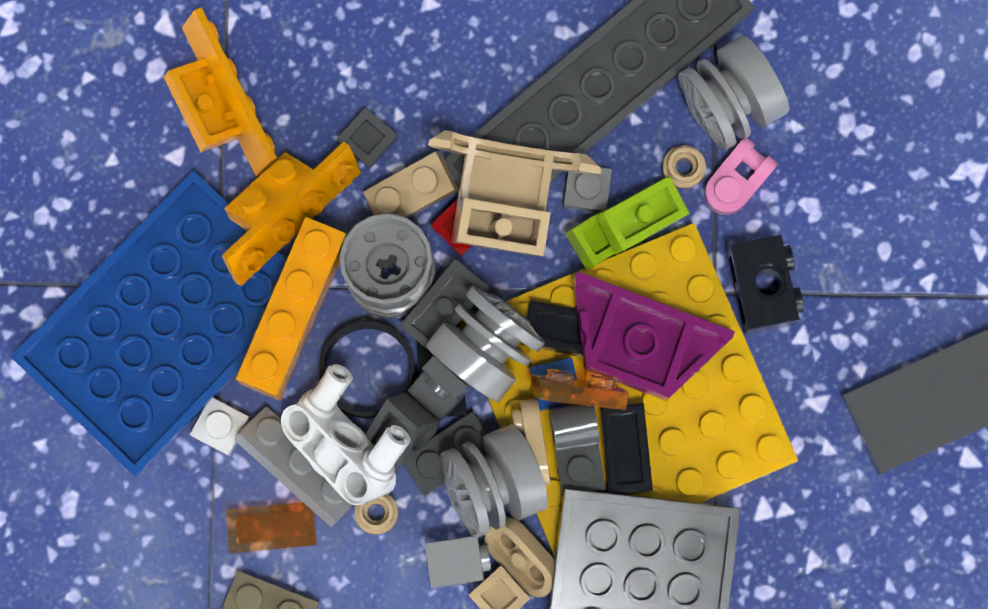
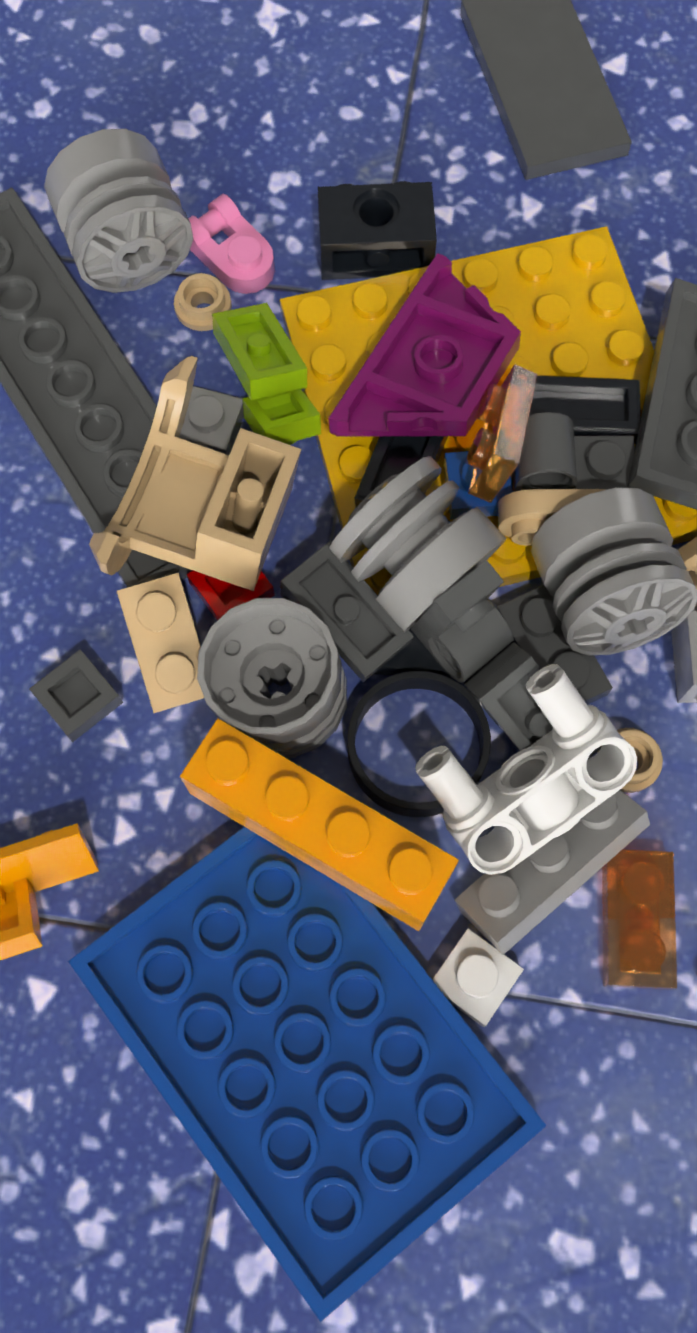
camera: 80 degrees left, 10 degrees down
(279, 202) = (151, 830): light orange bracket -> none

